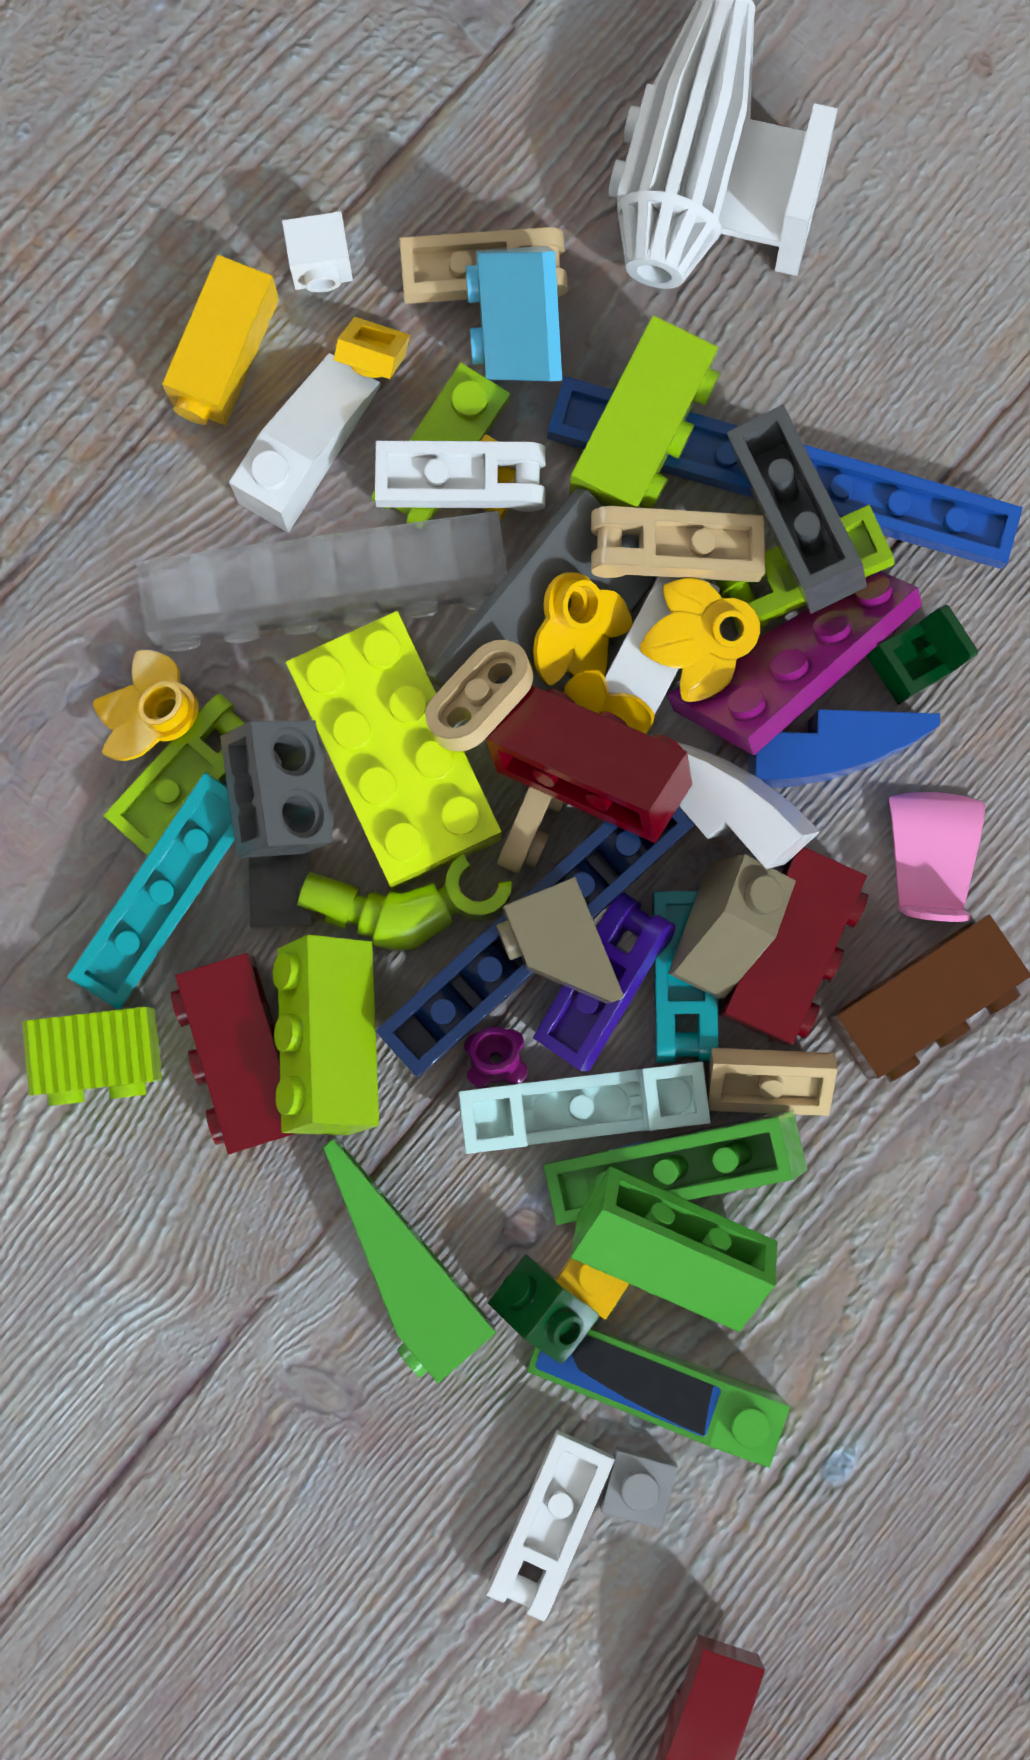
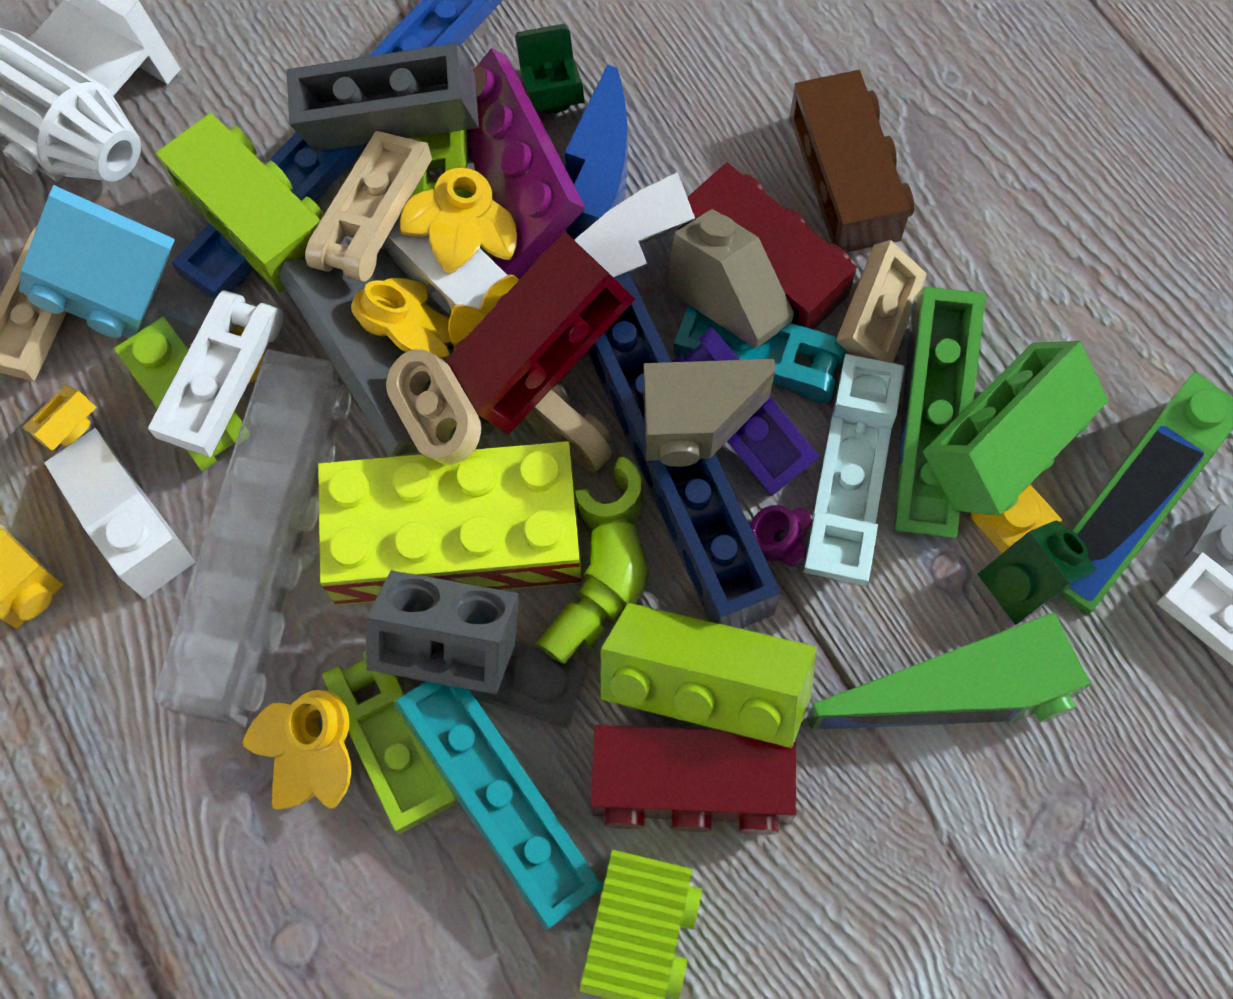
camera: 60 degrees left, 15 degrees down
(935, 852) = (722, 122): bright pink piece -> none

